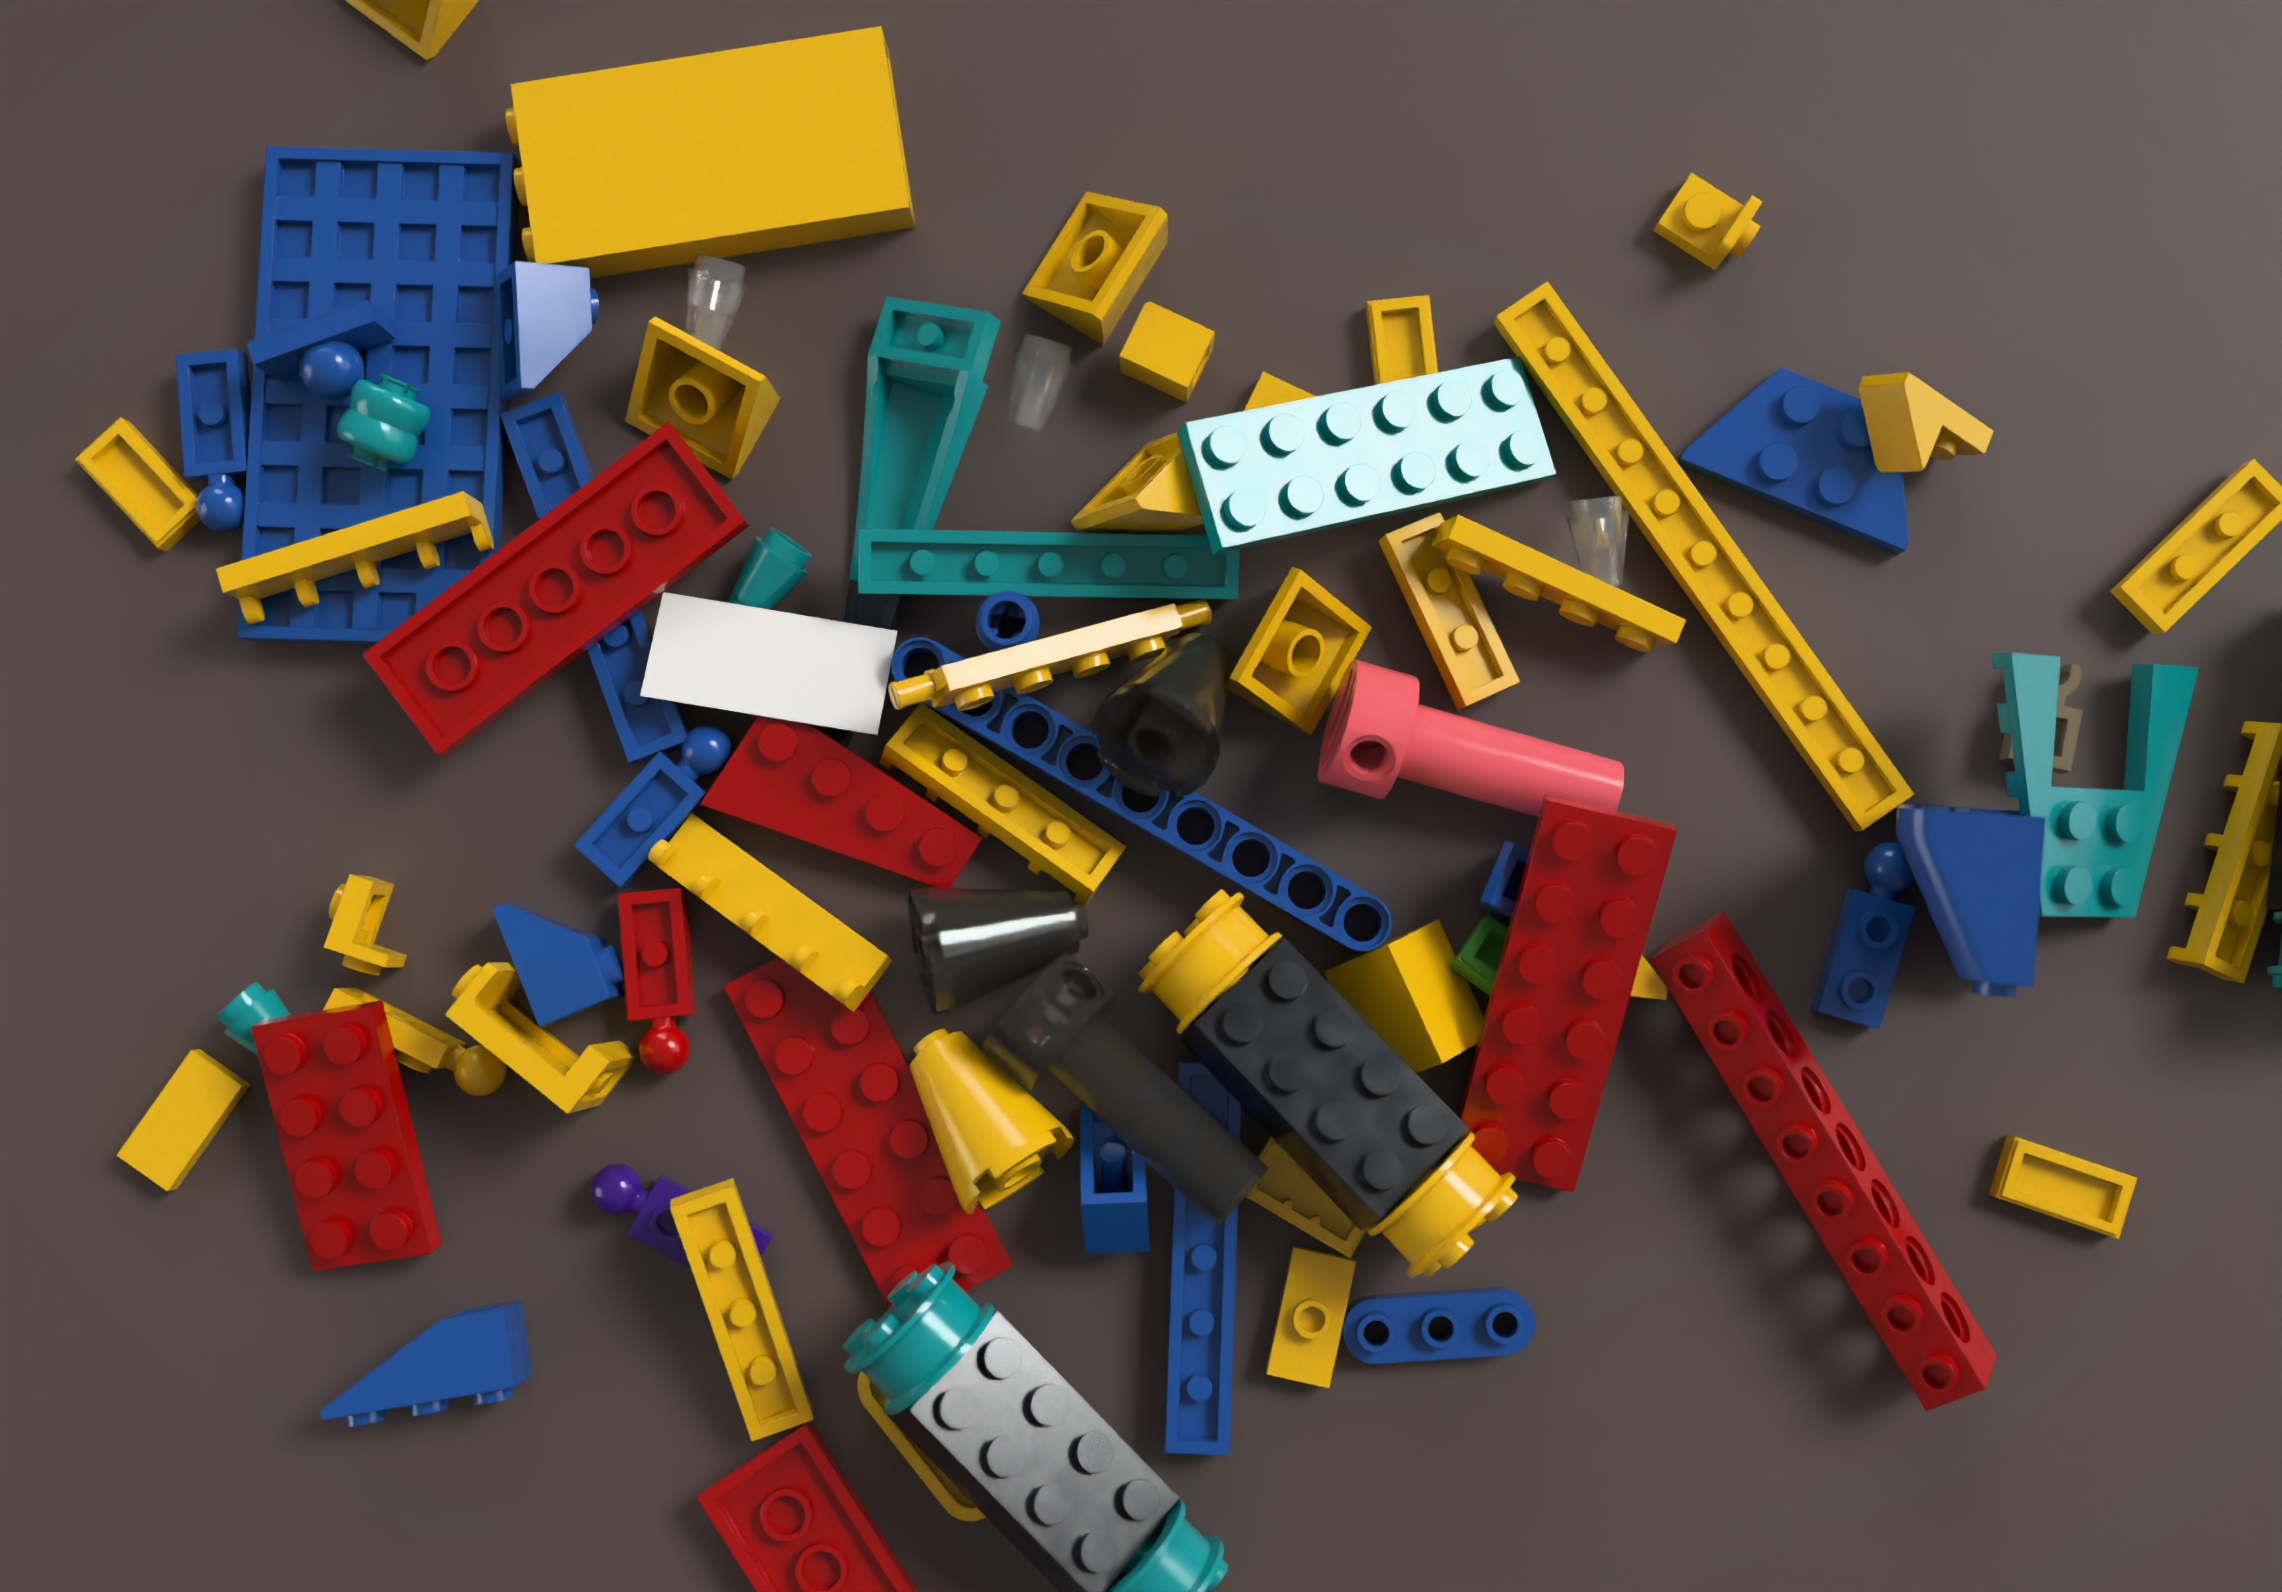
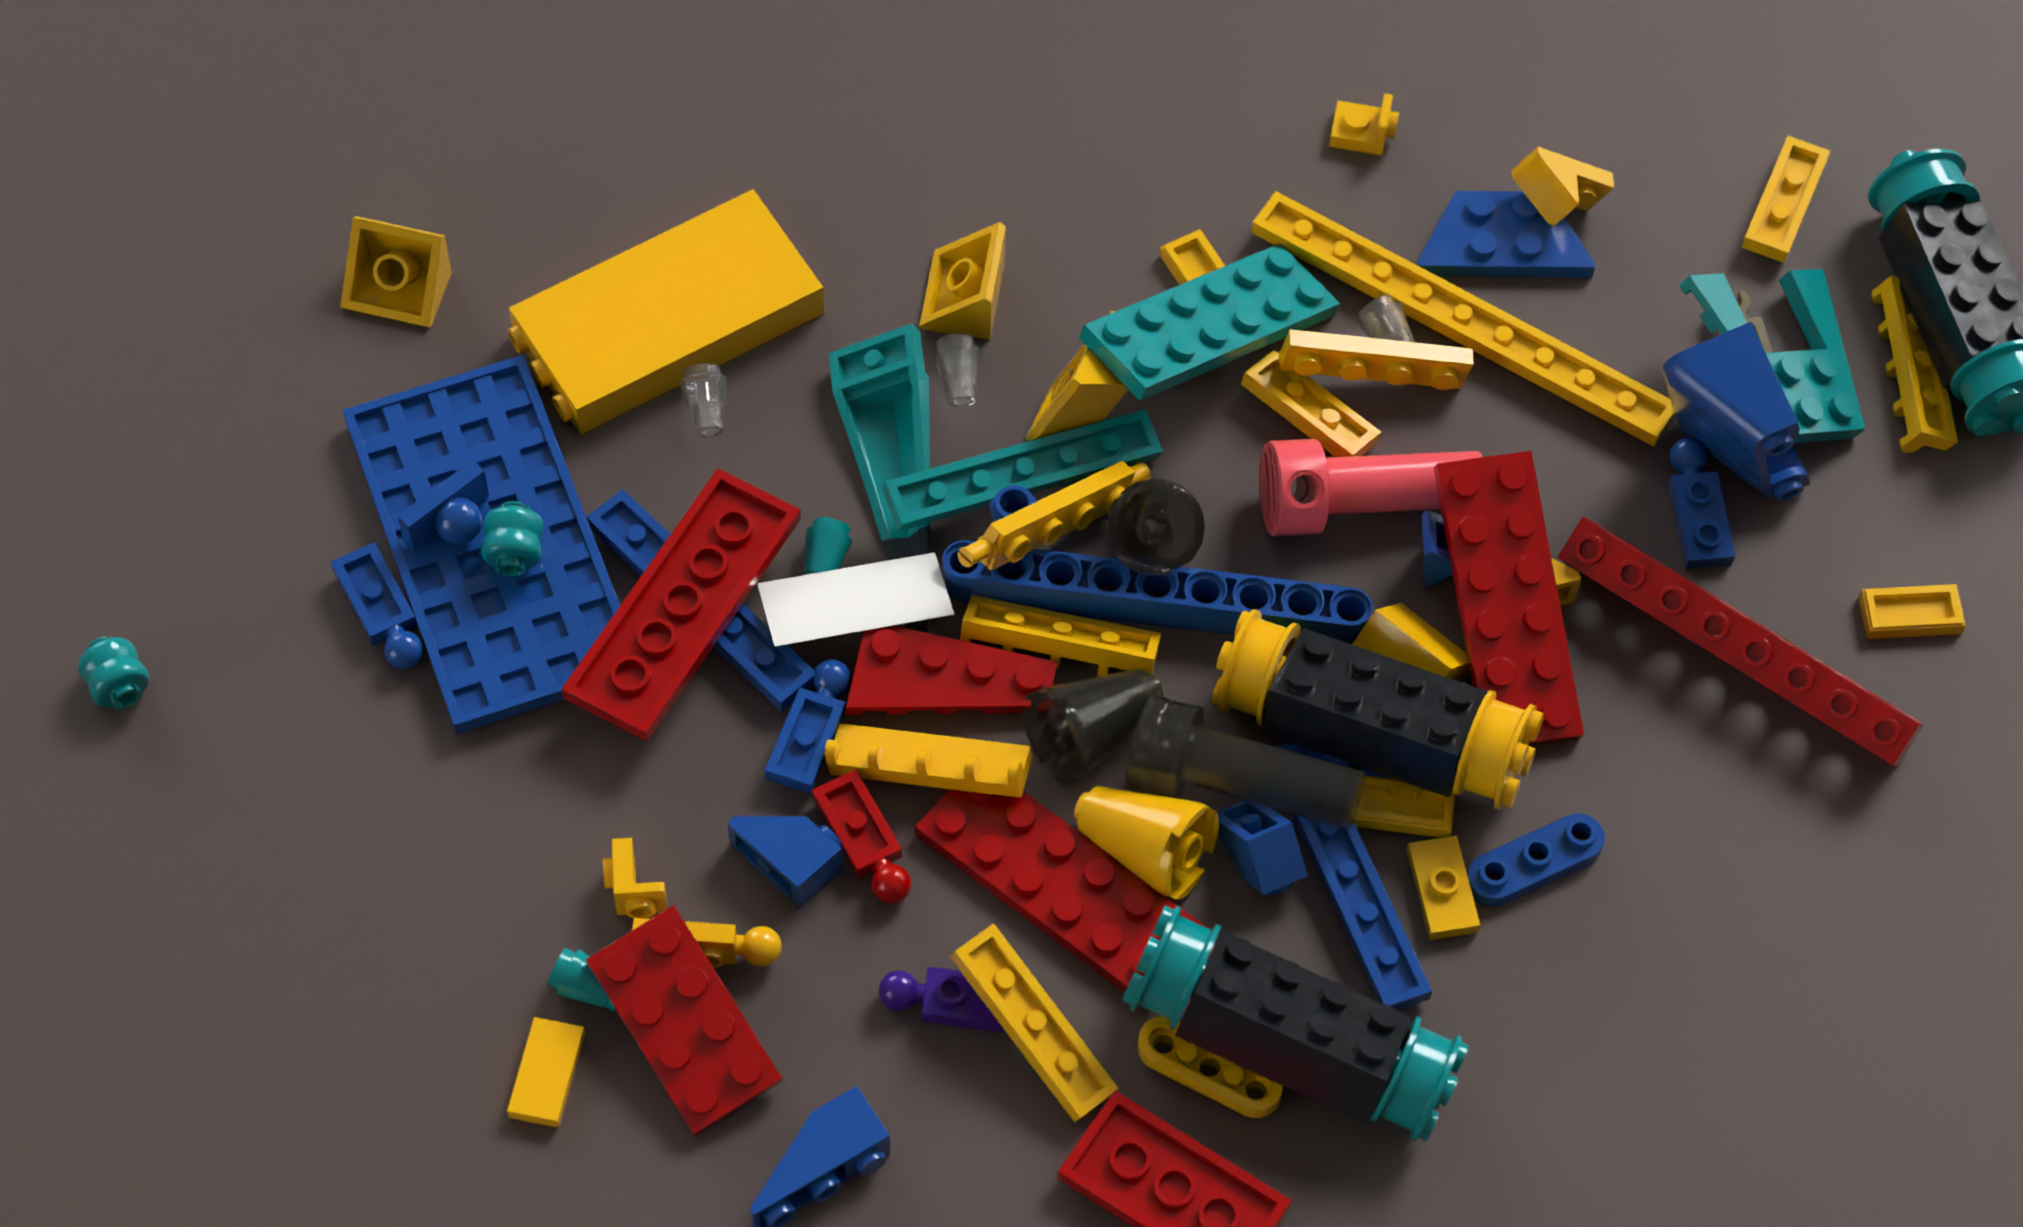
camera: 30 degrees left, 25 degrees down
(141, 484) = (333, 661): yellow tile -> none
(354, 548) = (525, 628): yellow hinge -> none
(490, 1017) = (802, 902): yellow panel -> none
(540, 320) = (590, 445): slope -> none
(703, 394) = (727, 440): yellow slope -> none
(1166, 351) = (1039, 320): yellow panel -> none
(1299, 653) = (1222, 466): yellow slope -> none
(1481, 953) = (1443, 609): bright green tile -> none

